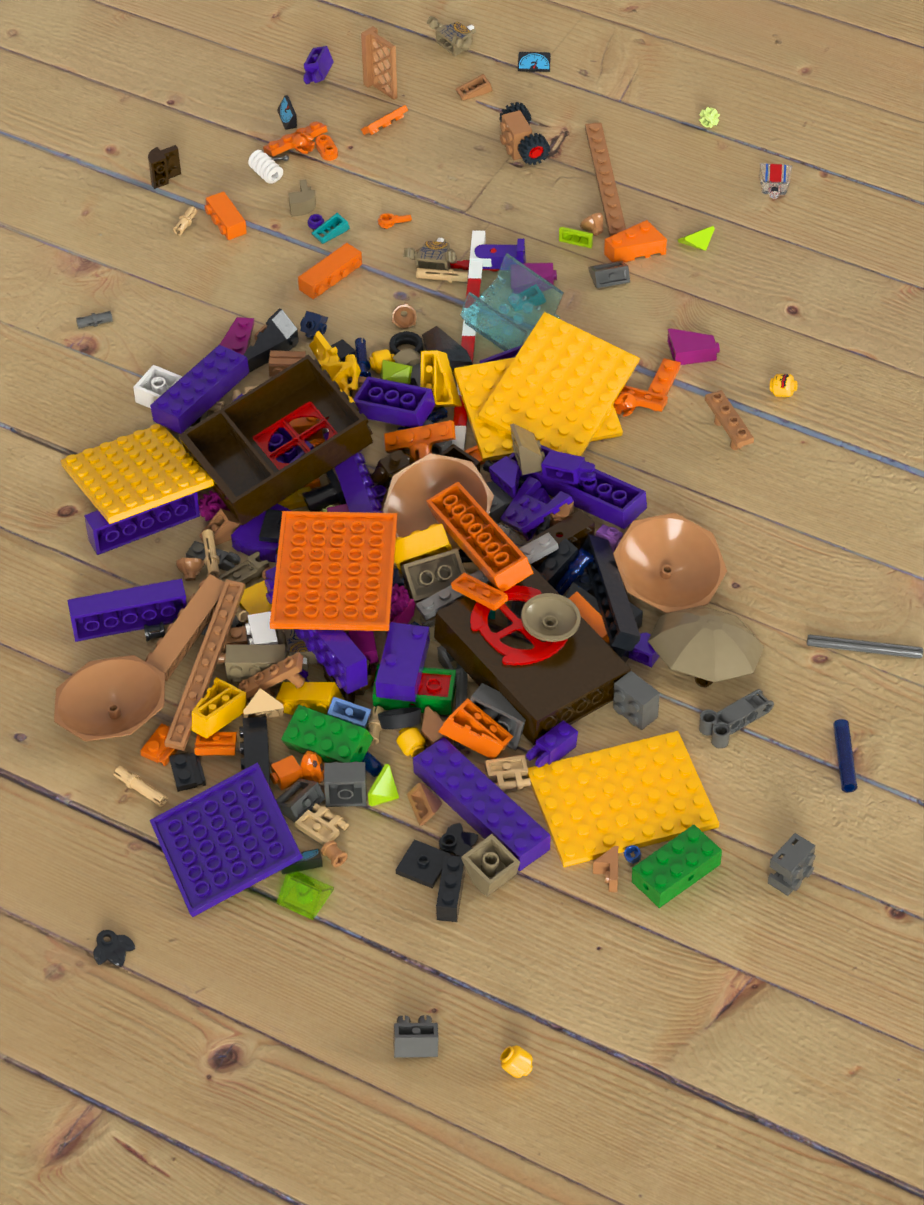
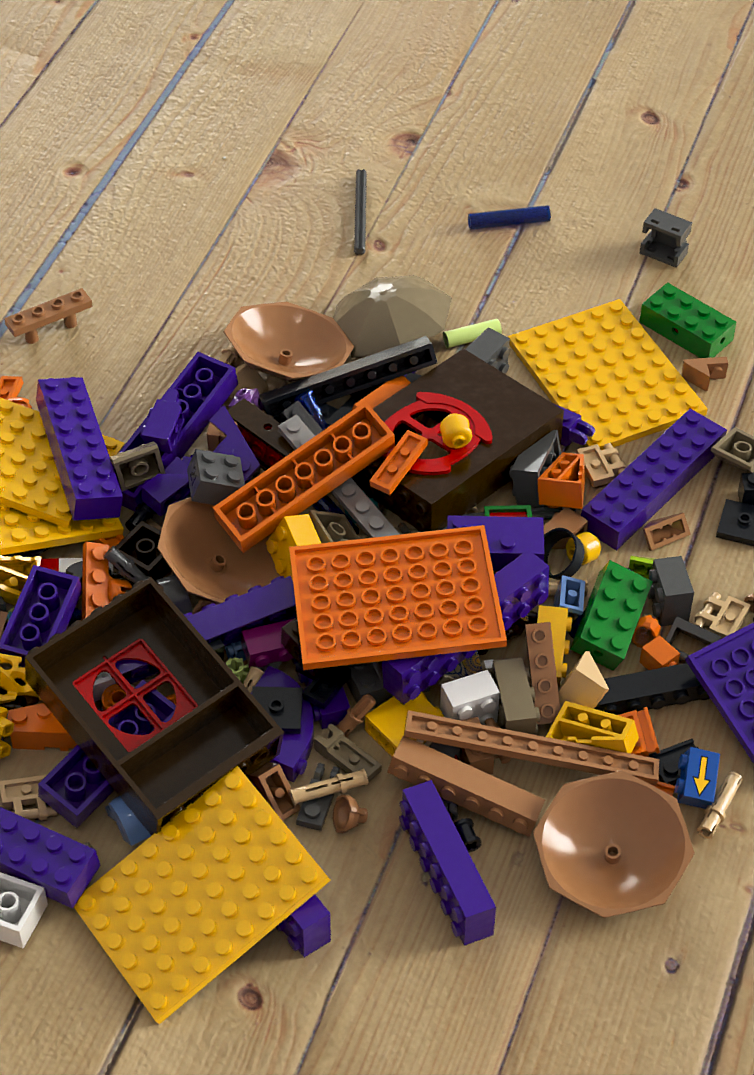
camera: 100 degrees left, 0 degrees up
(161, 769) = (697, 778): none -> blue brick
(434, 443) = (125, 565): none -> dark grey pin
(459, 841) = (705, 498): black plate -> none
(495, 490) = (214, 476): none -> dark grey brick
(505, 629) = (455, 431): none -> yellow head
(550, 617) = (431, 393): dark tan dish -> none
(553, 418) = (78, 449): none -> dark purple brick
(630, 849) = (679, 354): blue hinge -> none
(684, 705) = (469, 333): none -> yellowish green piece
(733, 717) = (481, 294): dark grey piece -> none

